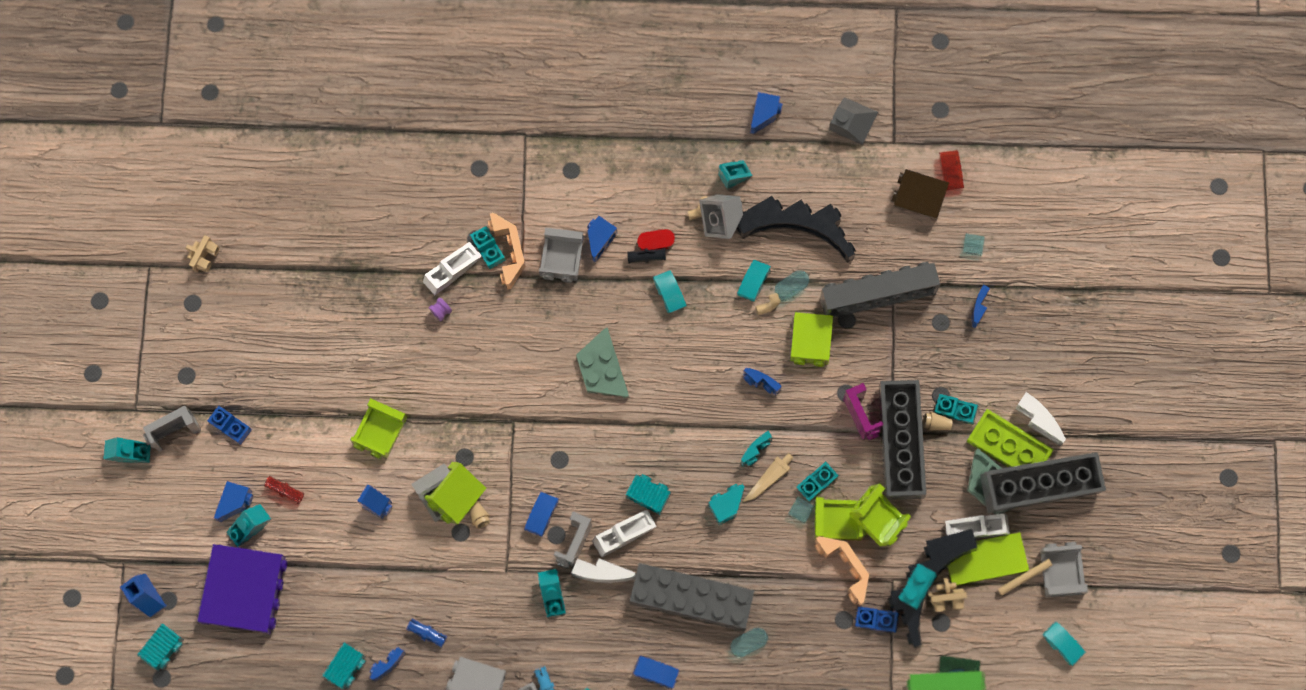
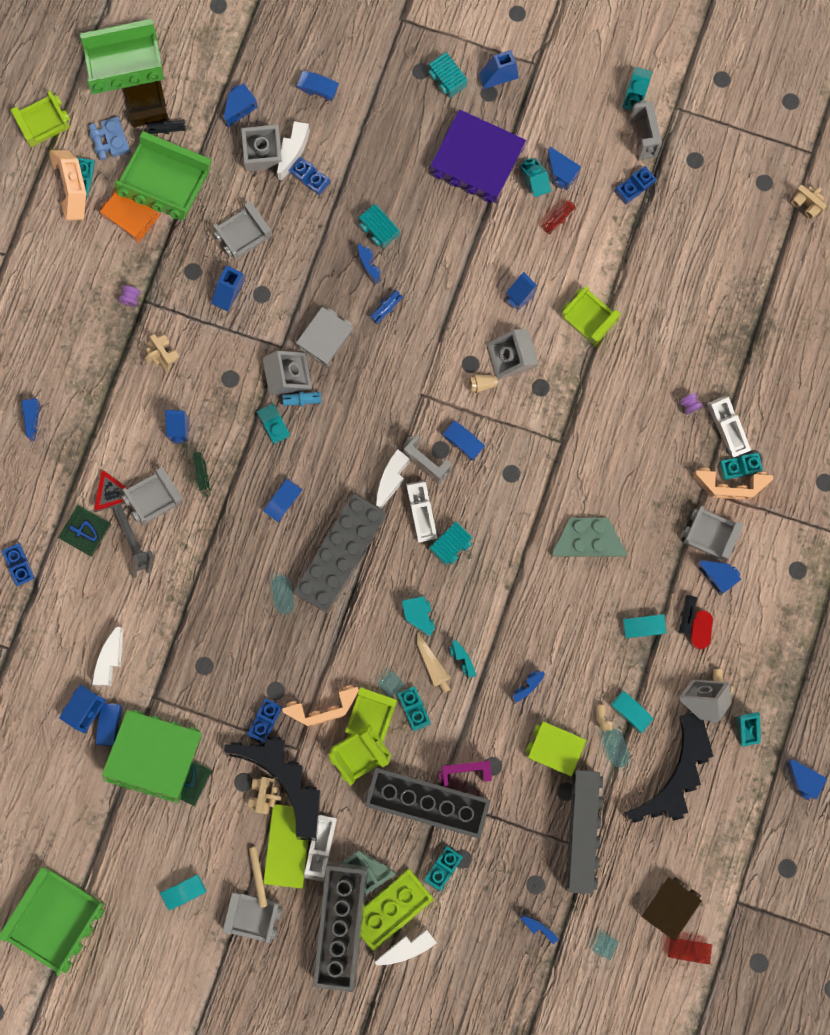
camera: 105 degrees right, 5 degrees up
(455, 494) = (504, 365): lime panel -> none
(551, 592) = (387, 427): teal slope -> none
(852, 120) = (772, 867): dark grey slope -> none
(917, 586) = (277, 765): teal brick -> none
(936, 422) = (435, 844): tan cone -> none

